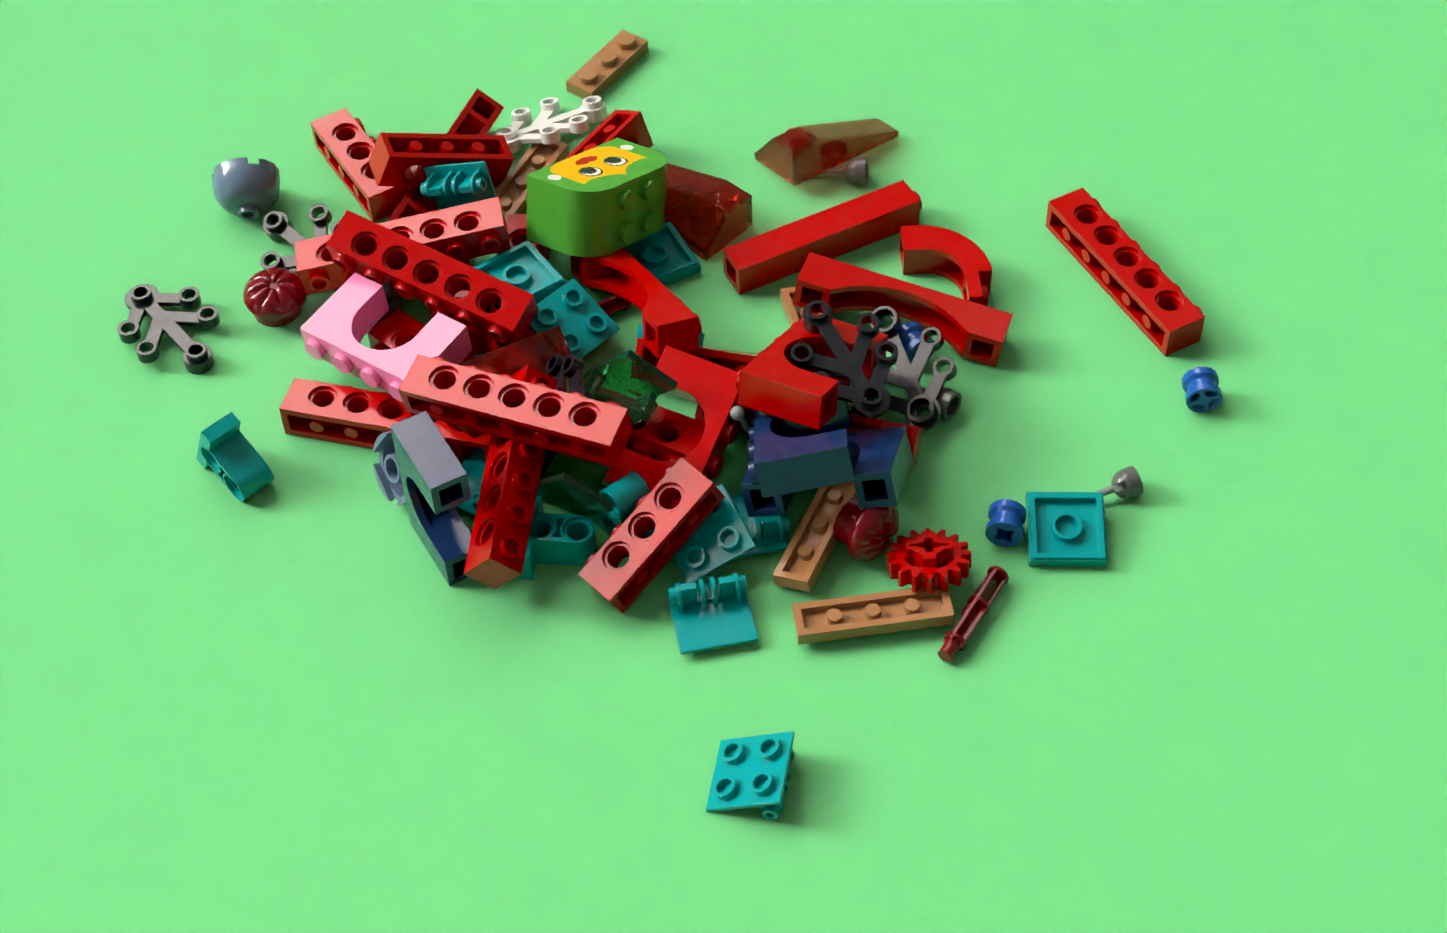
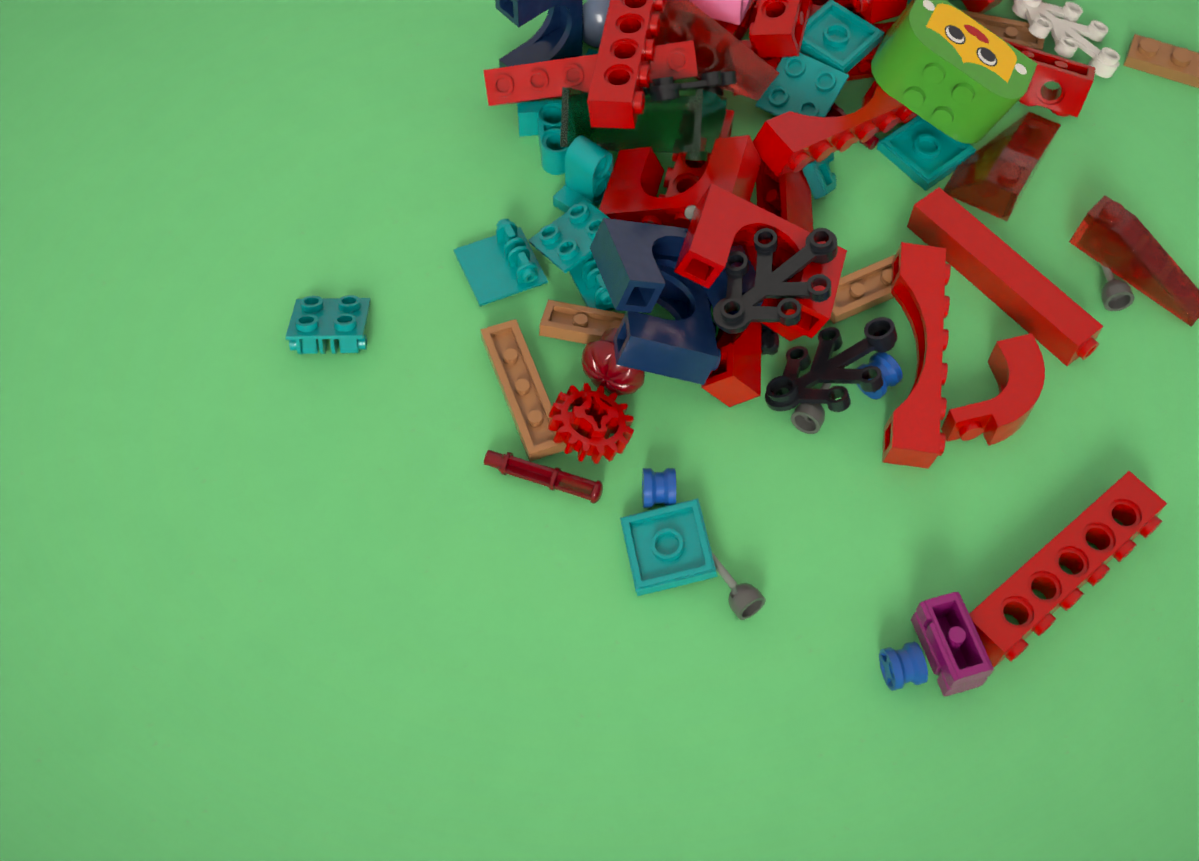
camera: 75 degrees right, 10 degrees up
(649, 555) = (556, 189): brick -> none
(1189, 346) = (951, 643): none -> magenta brick

